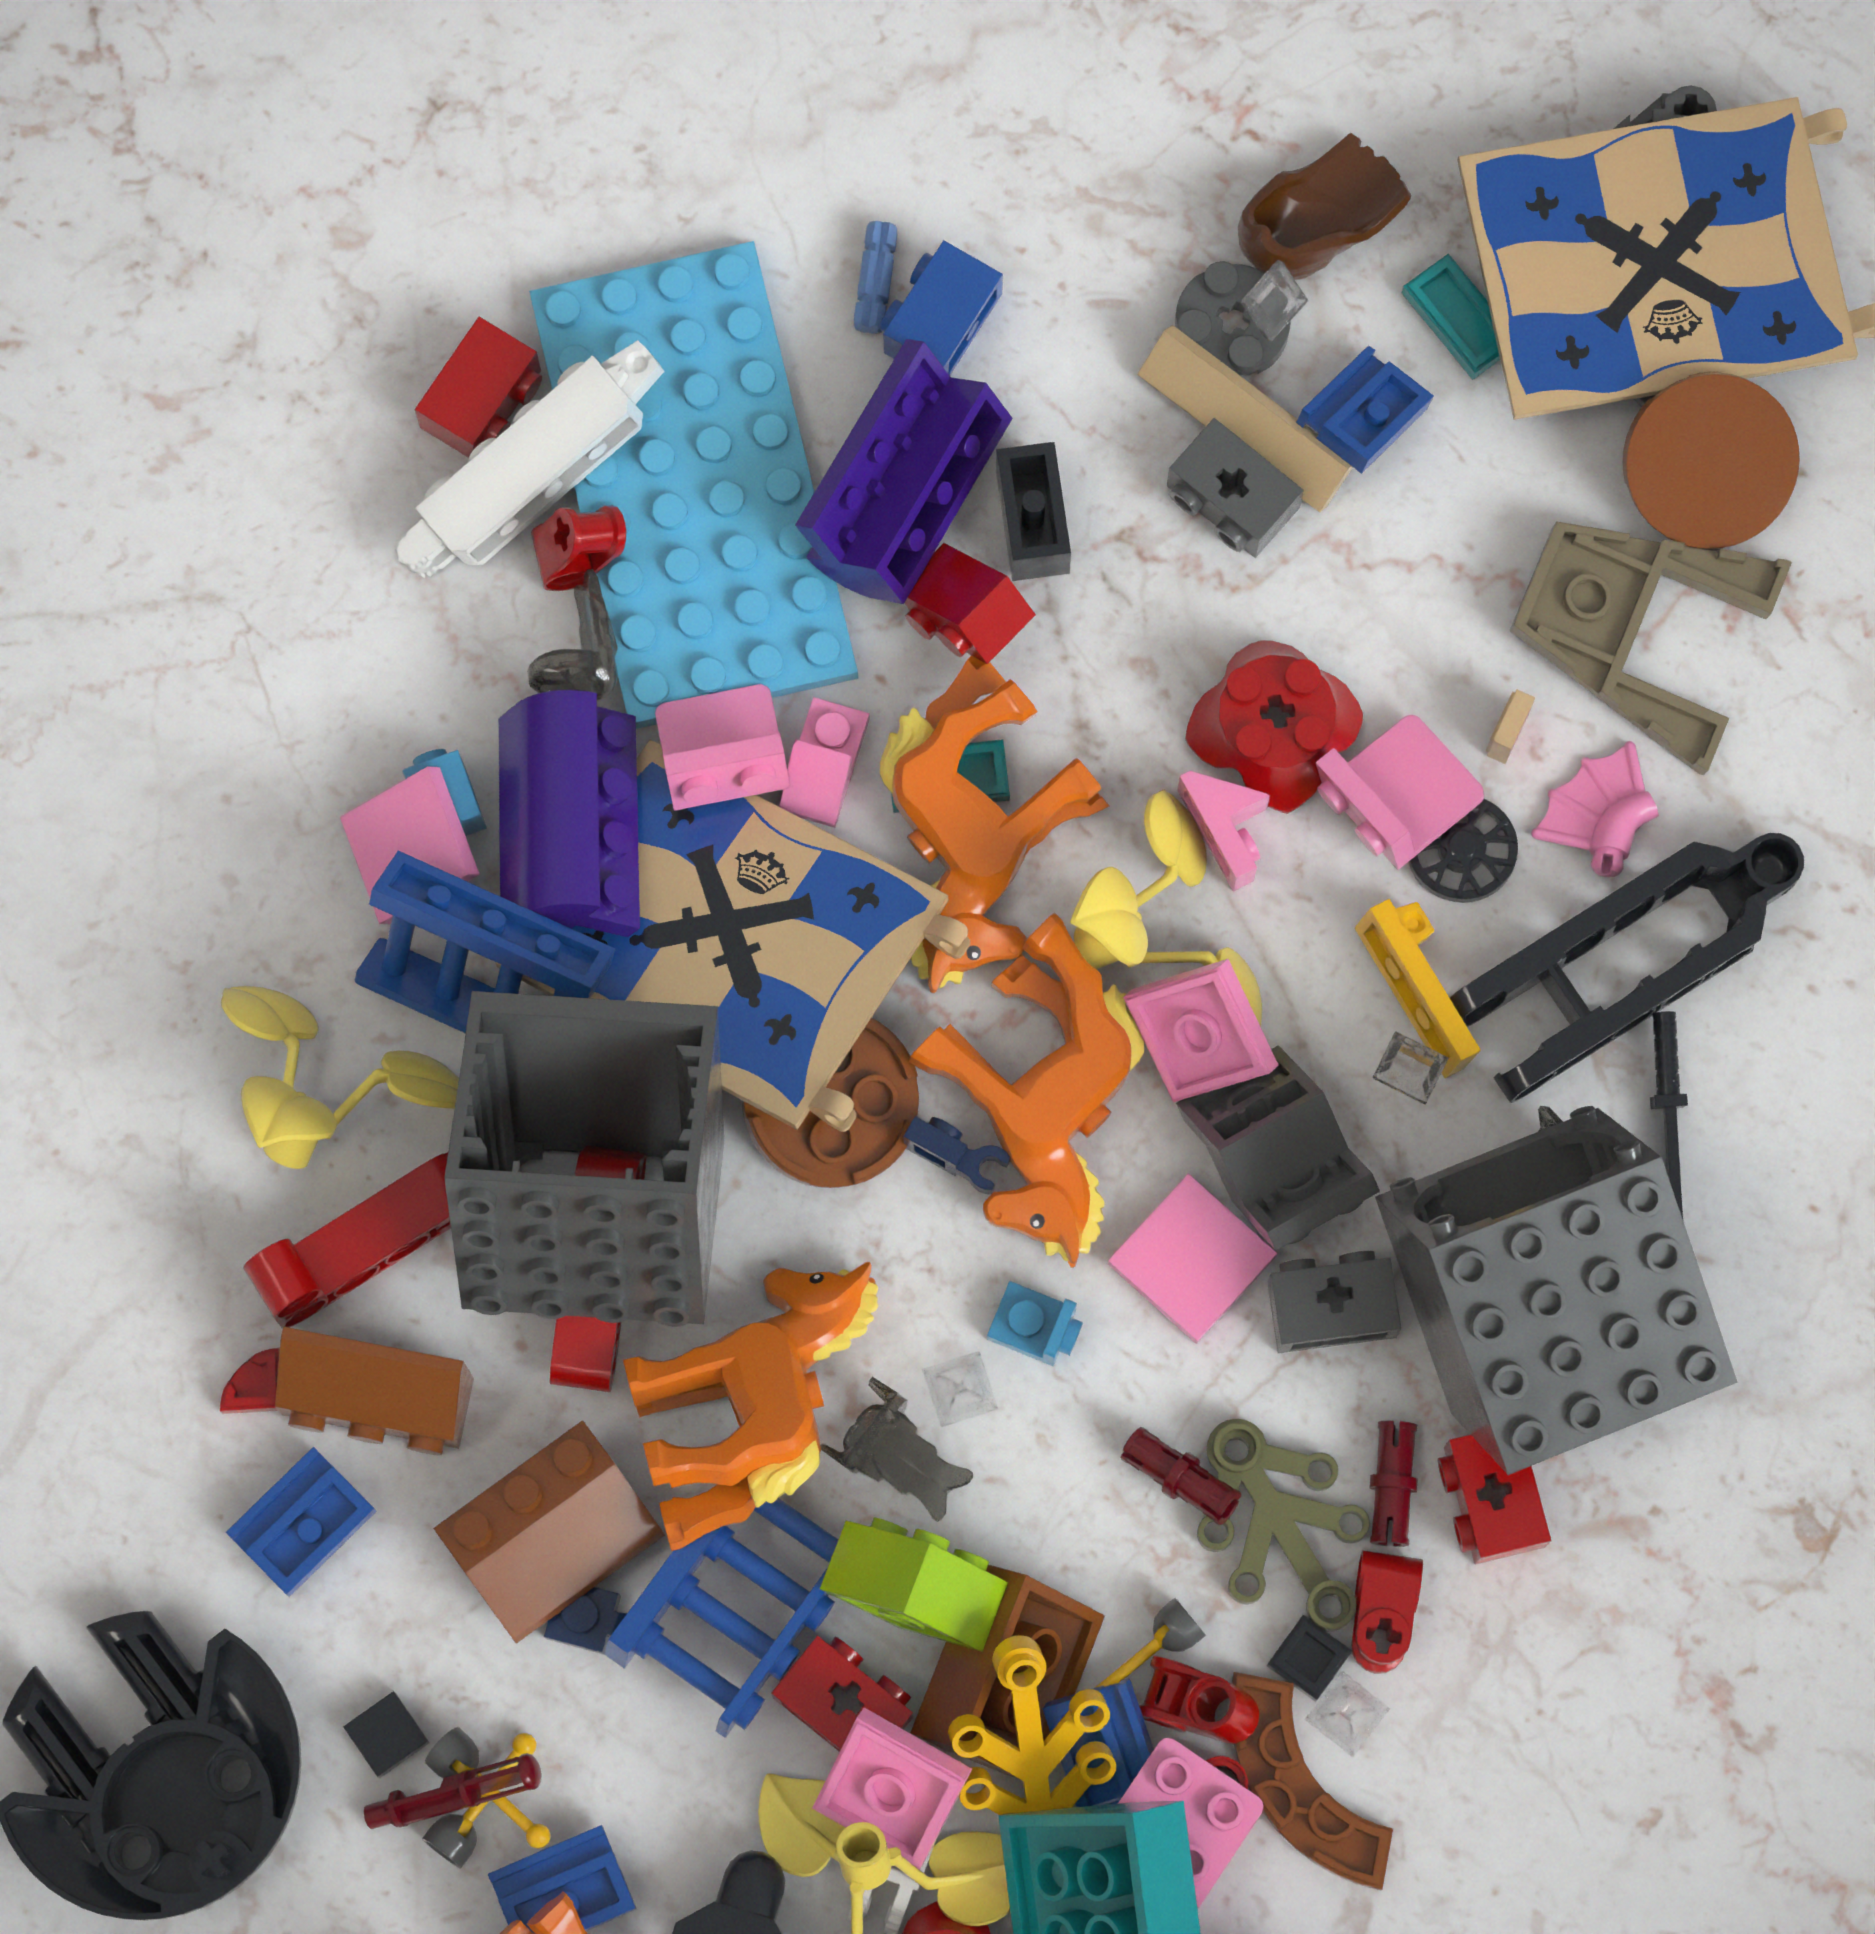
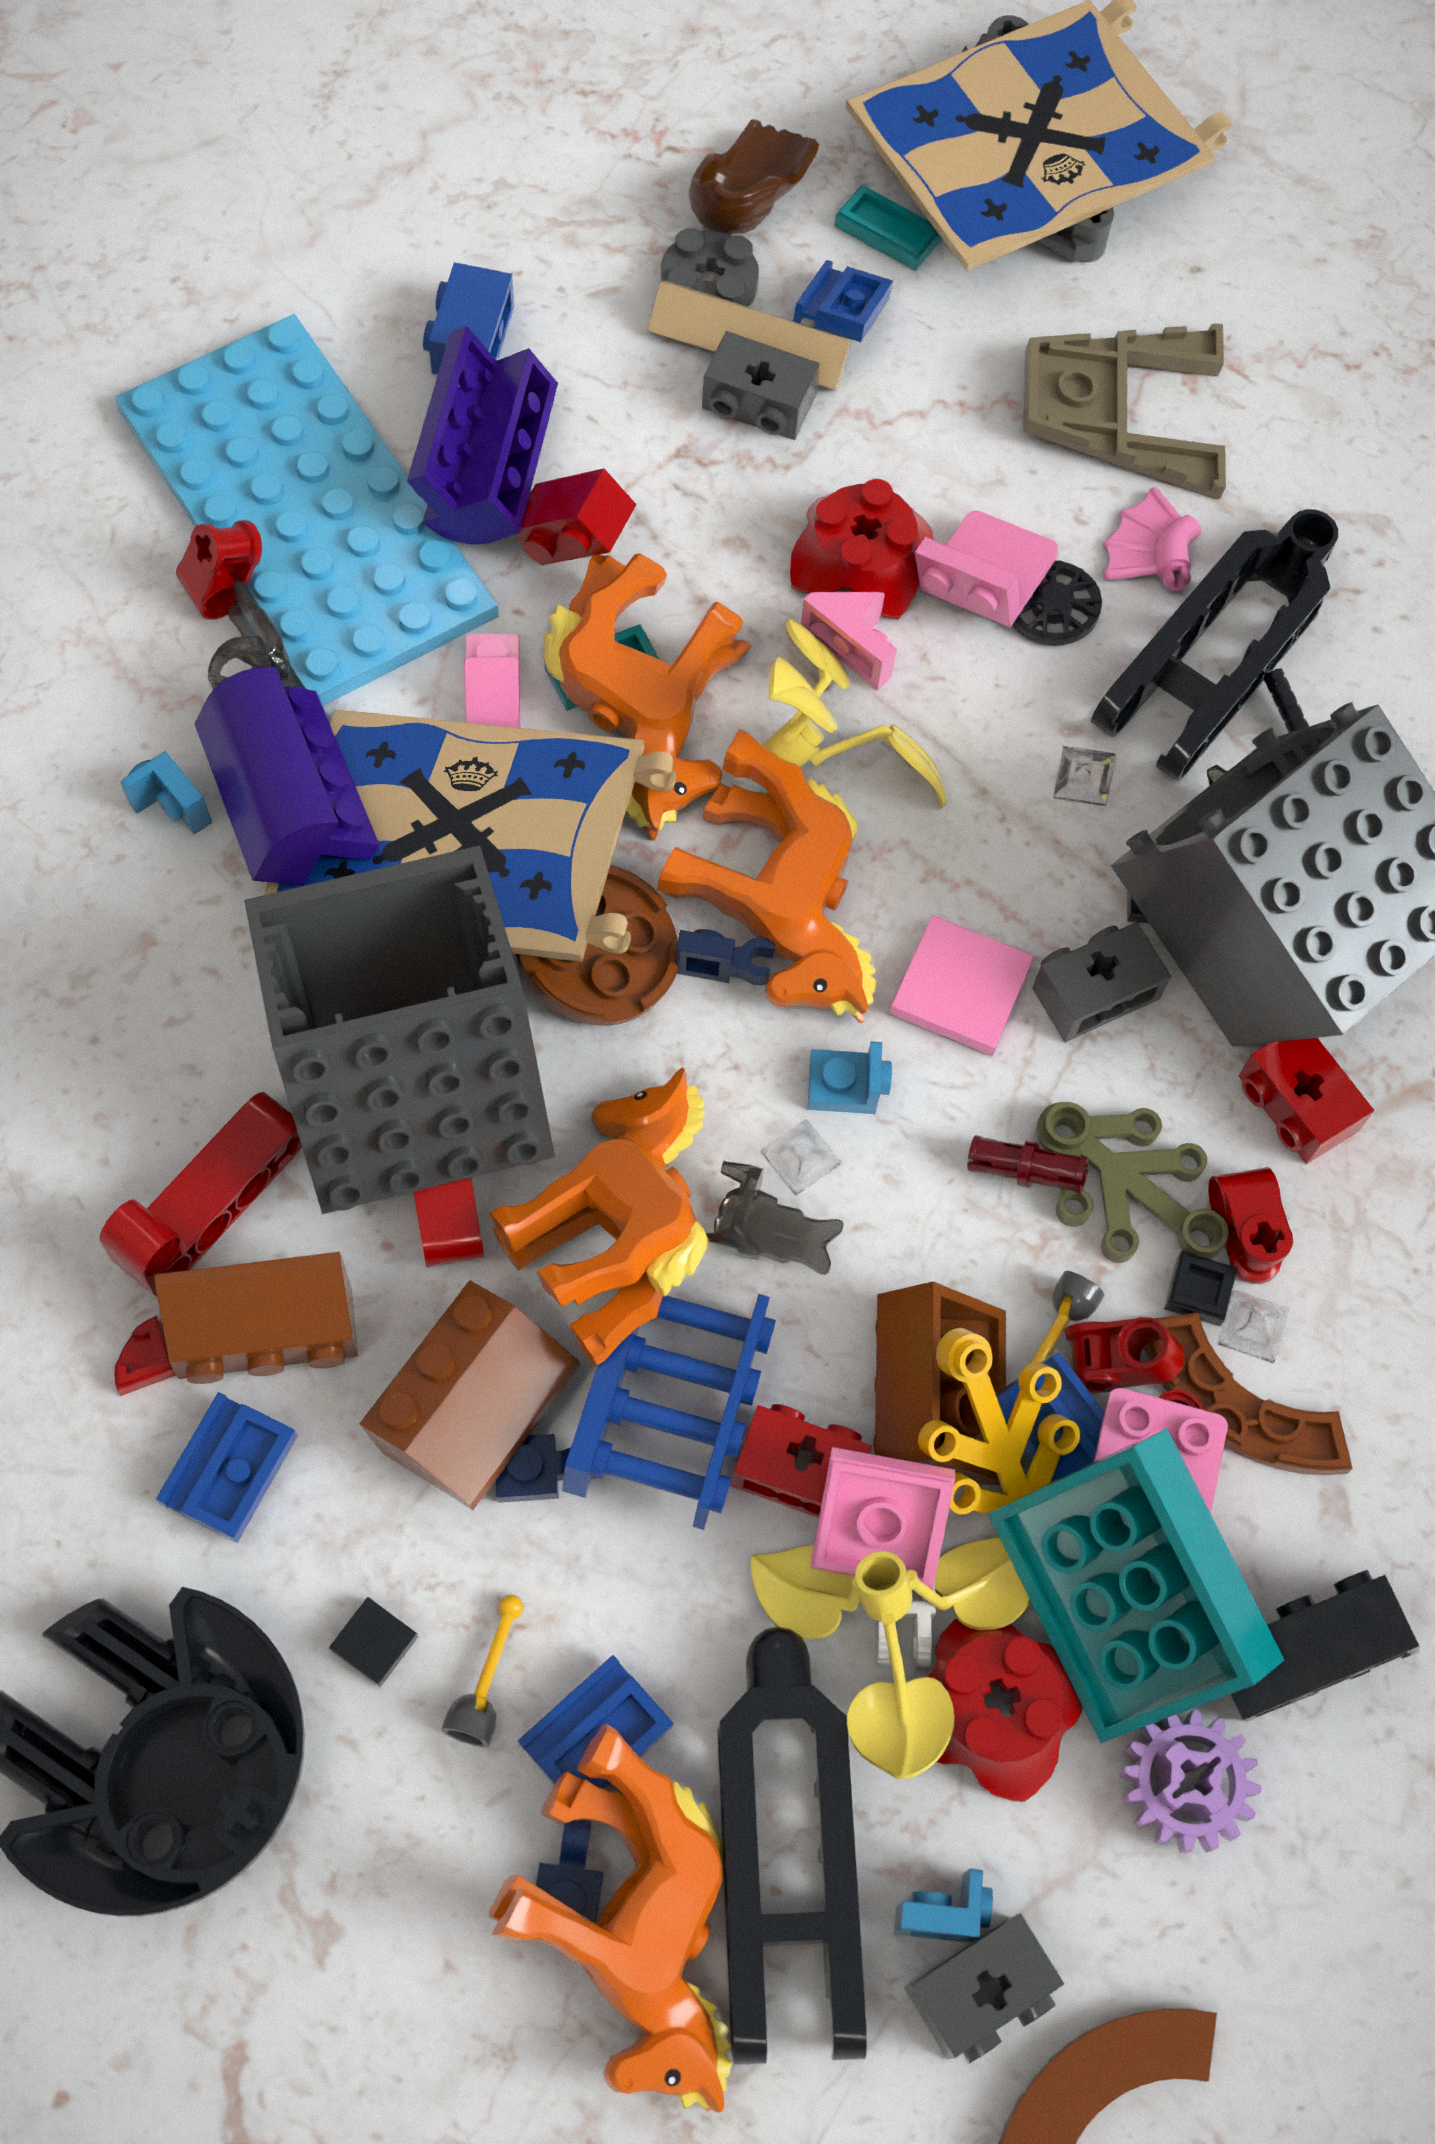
camera: 25 degrees left, 10 degrees down
(288, 1120) = (114, 1086): light yellow plant -> none
(409, 818) = (146, 845): bright pink tile -> none
(455, 1793) = (461, 1671): dark red piece -> none
(458, 1753) = (451, 1641): hinge -> none
(474, 922) = (217, 867): blue fence -> none
(479, 388) = (94, 479): red brick -> none
(531, 462) = (156, 515): white hinge -> none
(721, 746) = (403, 689): bright pink bracket -> none
(875, 276) = (405, 316): medium blue axle -> none
(915, 1582) = (833, 1324): lime brick -> none
(1033, 511) = (602, 433): black brick -> none
(1201, 1030) = (902, 787): bright pink tile -> none
(1274, 300) = (740, 237): clear slope -> none
(1280, 1152) = (1005, 864): dark grey bracket -> none
(1393, 943) = (1034, 688): yellow hinge -> none
(1393, 1483) = (1212, 1115): dark red pin -> none
(1509, 726) = (1055, 497): tan tile -> none
(1711, 460) = (1132, 261): dark orange tile -> none

